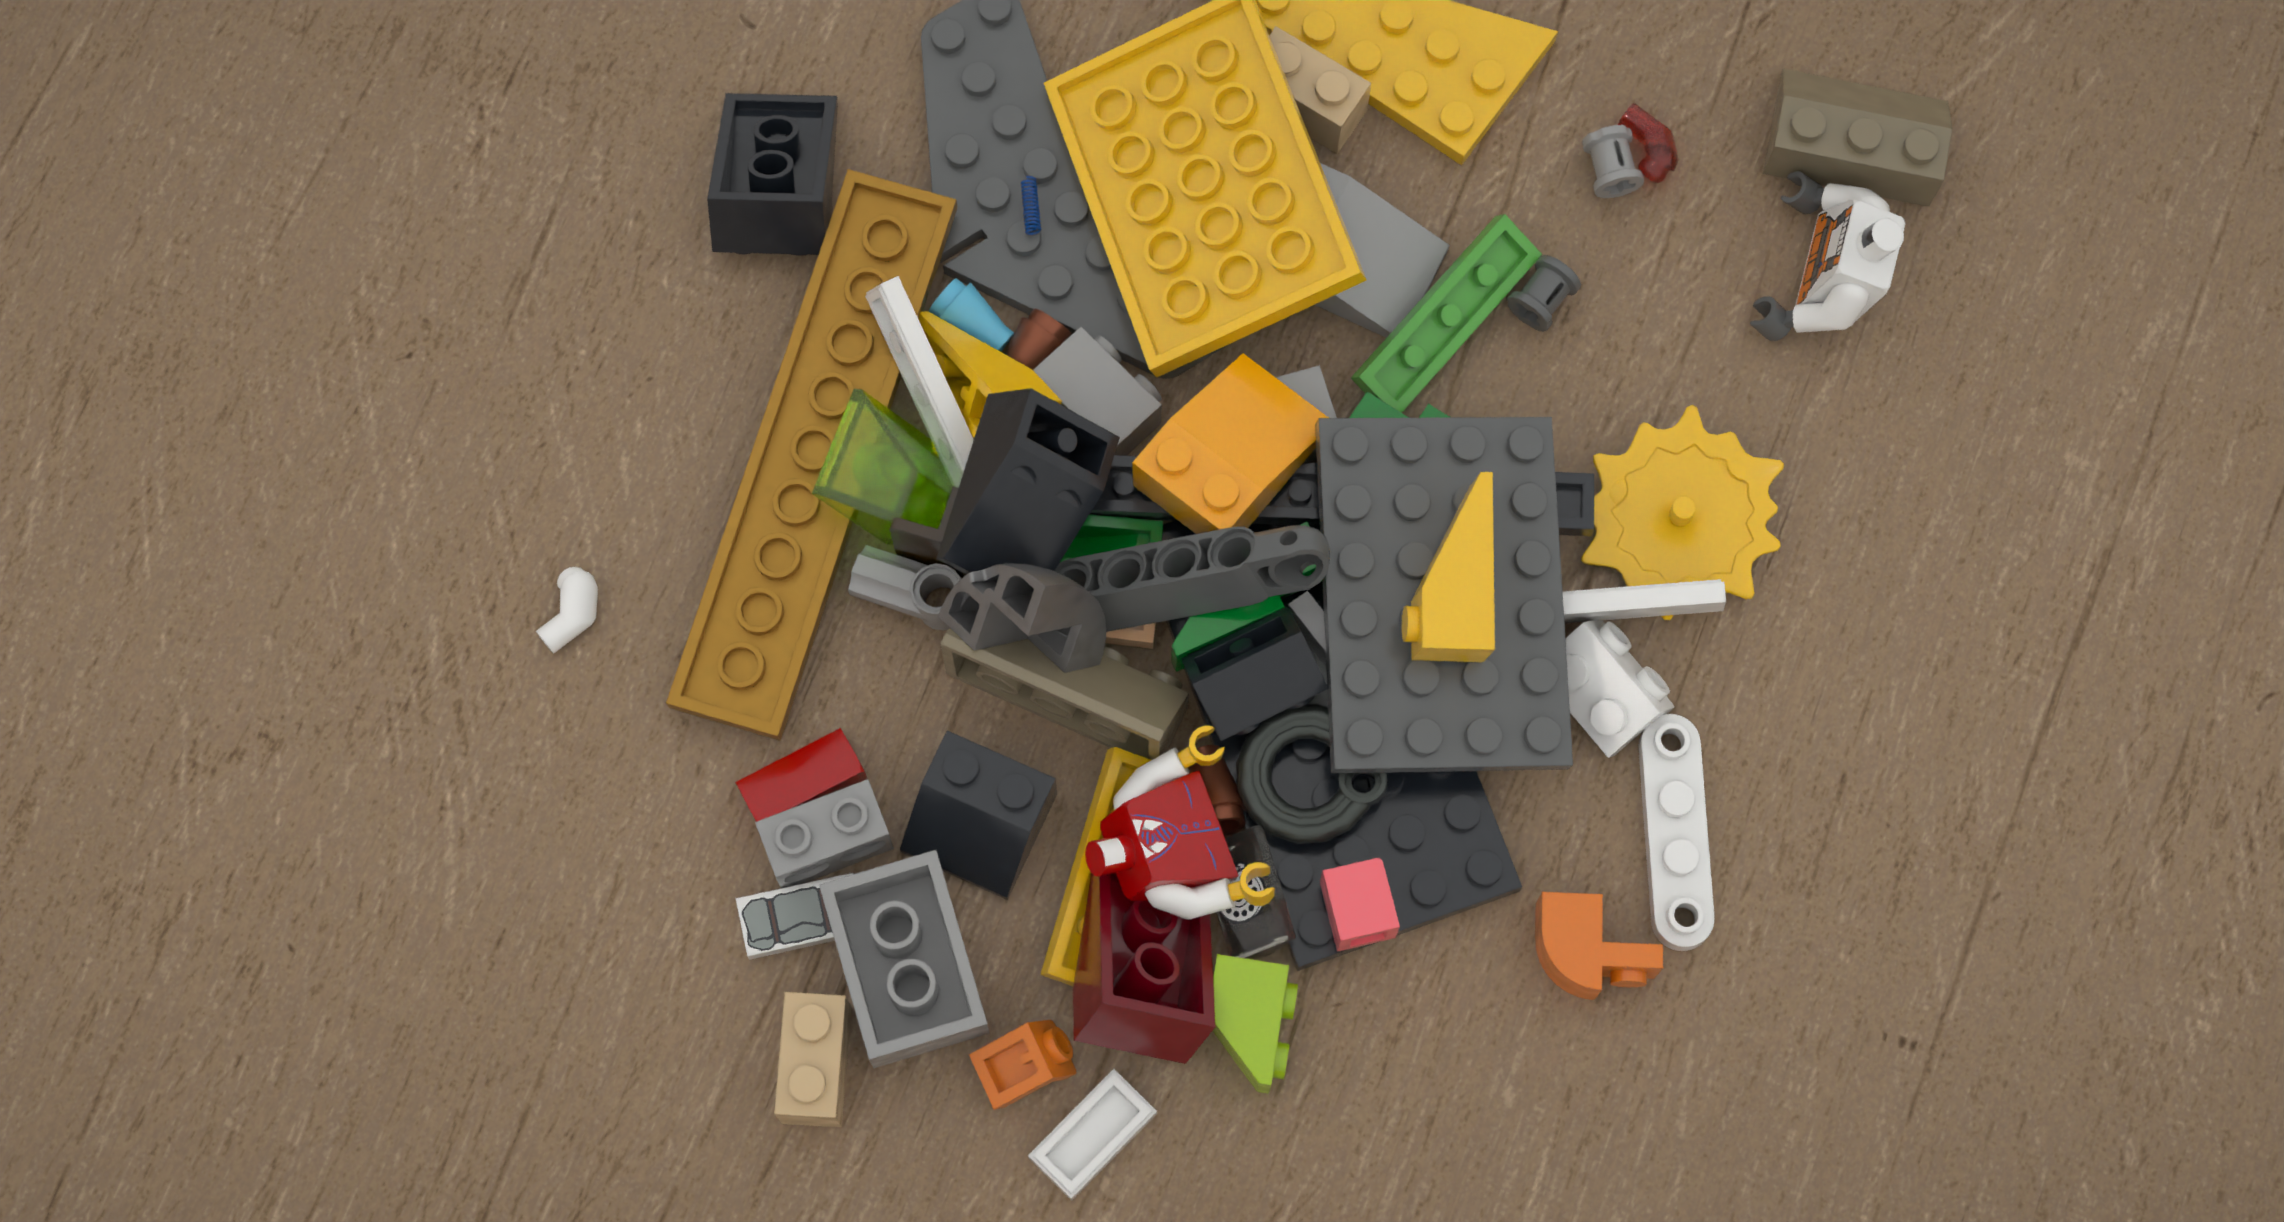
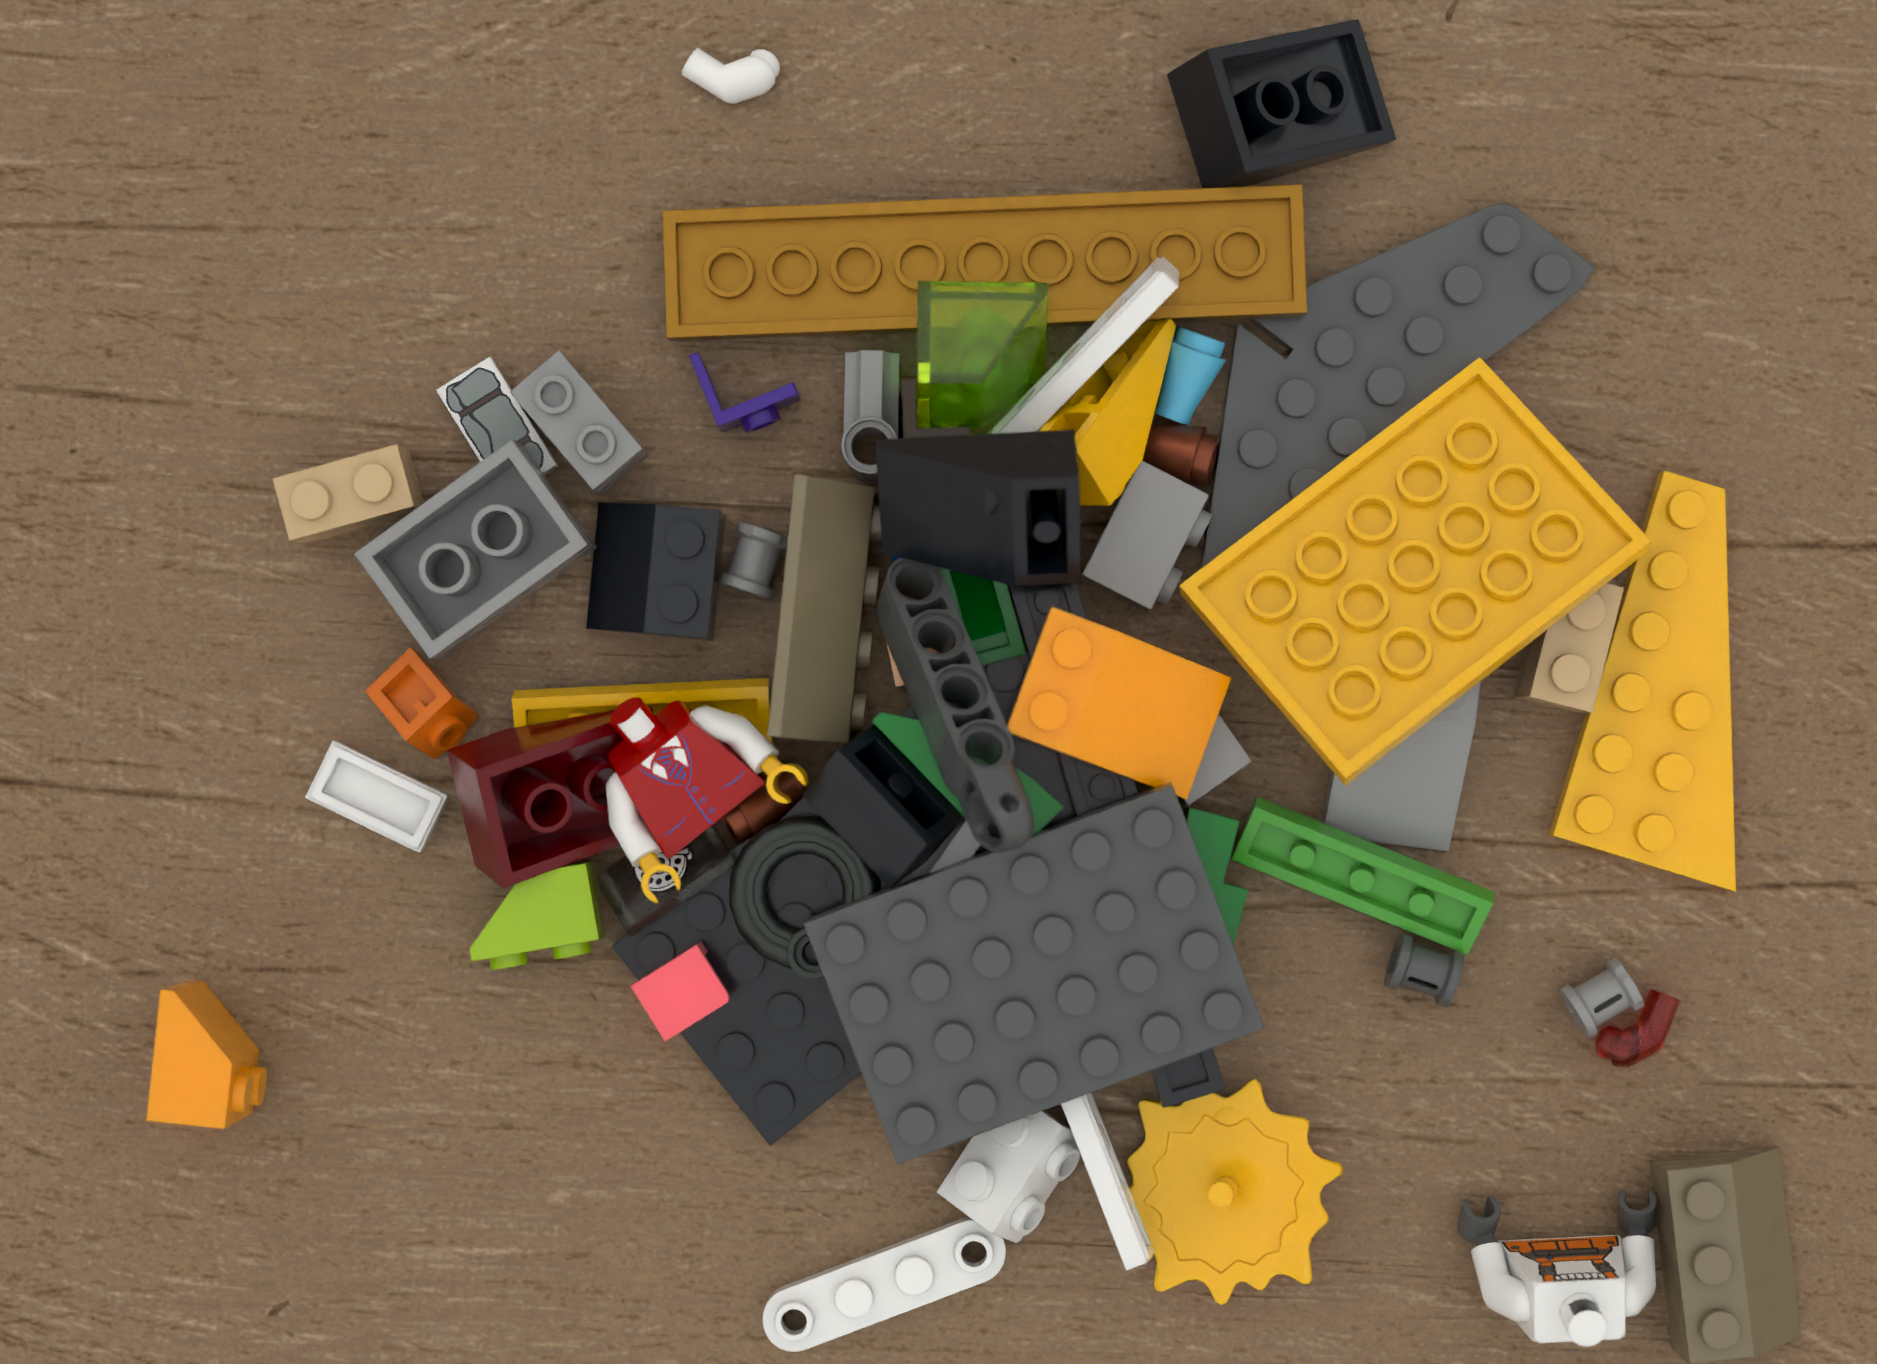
camera: 70 degrees right, 15 degrees up
(802, 776) = (635, 376): red slope -> none
(872, 687) = (752, 413): none -> dark purple bracket
(1000, 726) = (754, 560): none -> light grey bush
(1031, 604) = (857, 554): flat silver brick -> none
(1034, 203) = (1334, 397): blue leg -> none
(1455, 600) = (1026, 990): yellow slope -> none
(1573, 950) = (720, 1218): orange brick -> none

